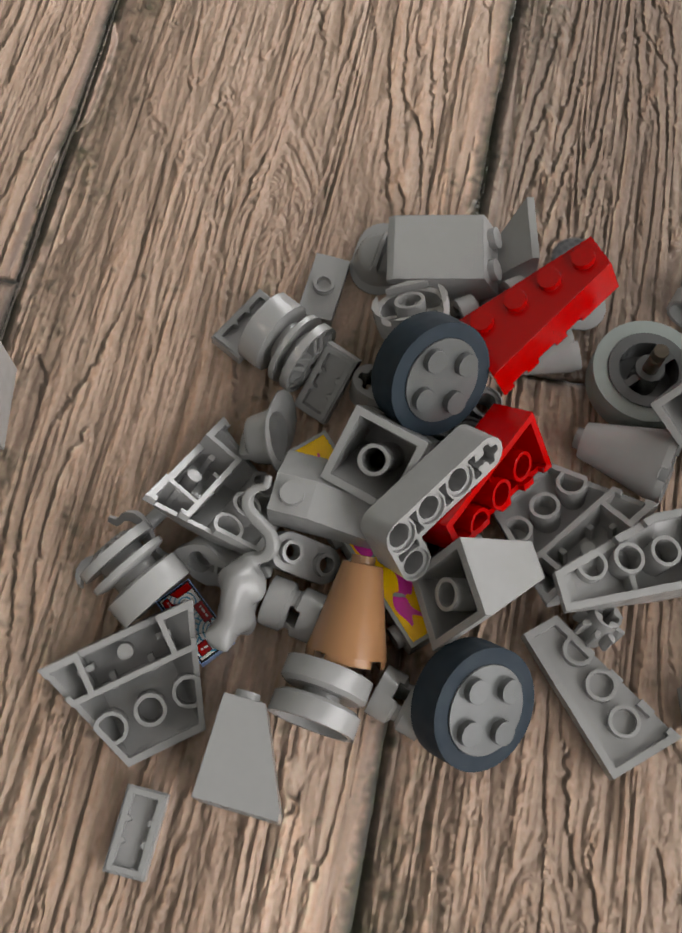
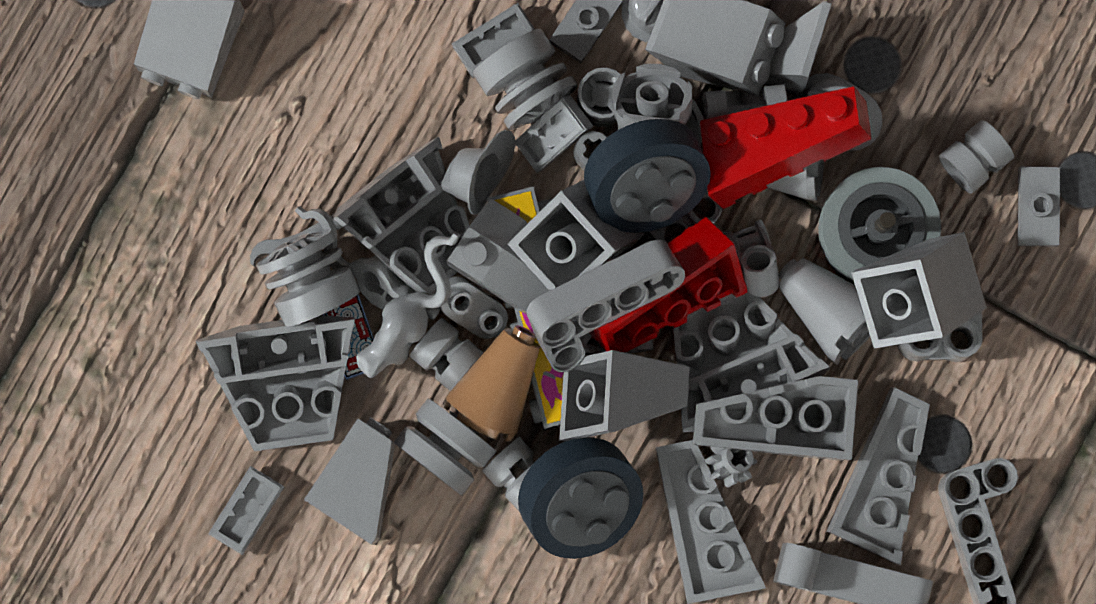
camera: 15 degrees right, 15 degrees up
(359, 335) = (596, 96): none -> light grey wheel
(556, 435) = (756, 259): none -> light grey piece

